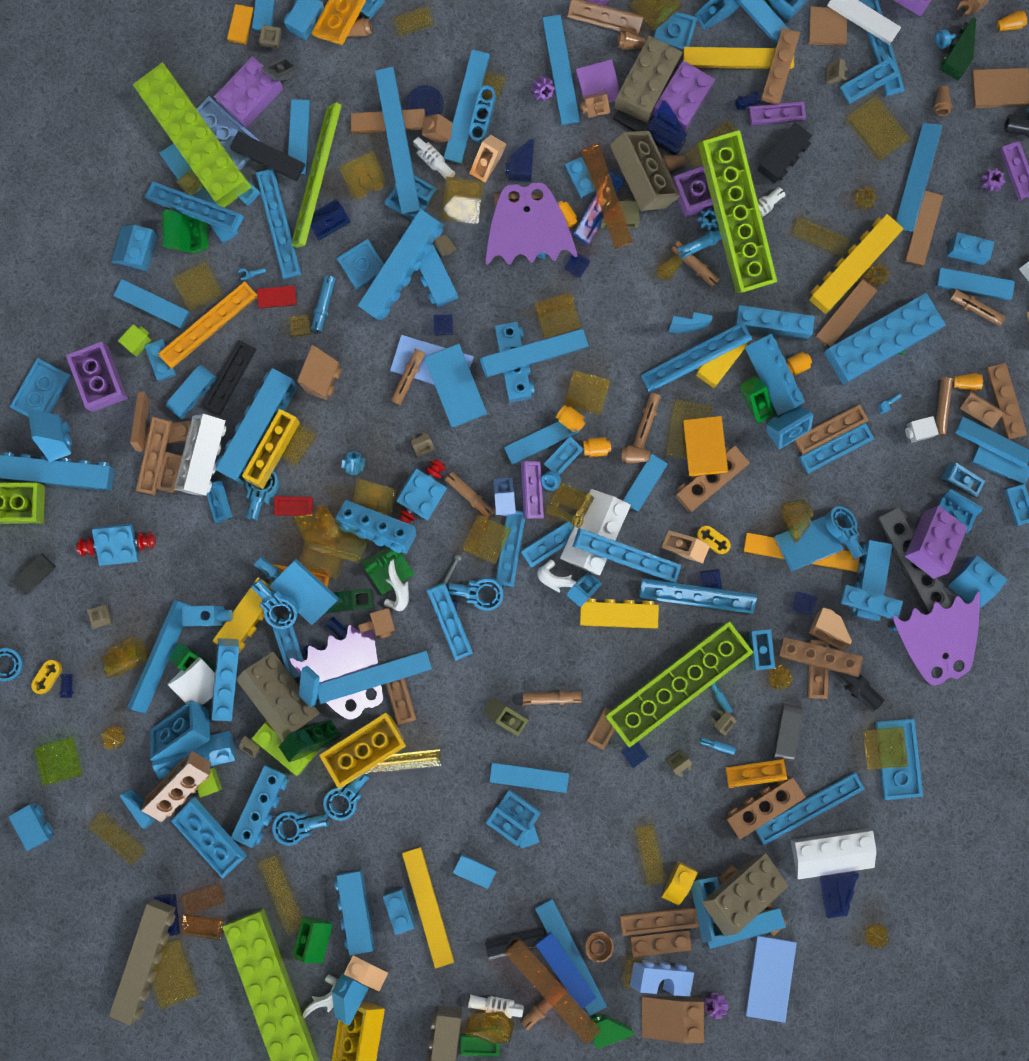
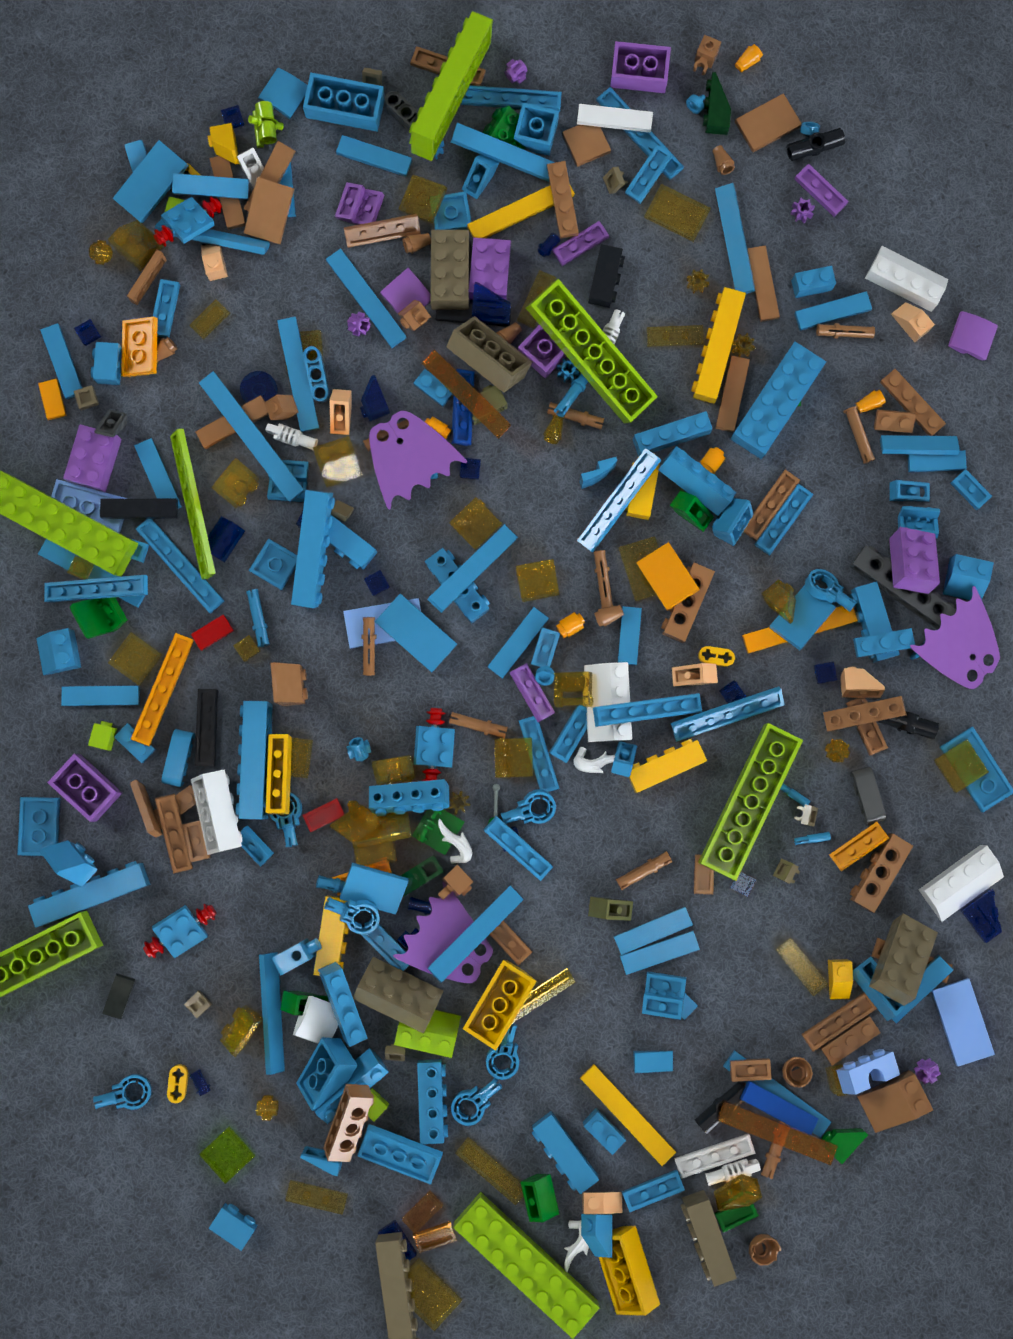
camera: 25 degrees left, 0 degrees up
(249, 274) = (179, 621): dark azure hand -> none
(307, 740) = (446, 1020): dark green slope -> none
(309, 686) = (423, 971): dark azure tile -> none
(412, 555) = (462, 799): none -> clear yellow gear
(416, 986) = (653, 1190): none -> dark azure plate
(422, 444) = (412, 701): dark tan tile -> none
(487, 983) = (714, 1155): none -> white tile
(504, 496) = (510, 711): slope -> none
(533, 755) = (653, 930): none -> dark azure tile
(557, 923) = (750, 1069): none -> medium nougat plate
(571, 418) = (535, 611): light orange brick -> none
(762, 646) = (807, 730): dark azure brick -> none
(810, 808) = (922, 852): dark azure tile -> none
(885, 406) = (808, 460): dark azure hand -> none
(921, 429) = (851, 465): white brick -> none

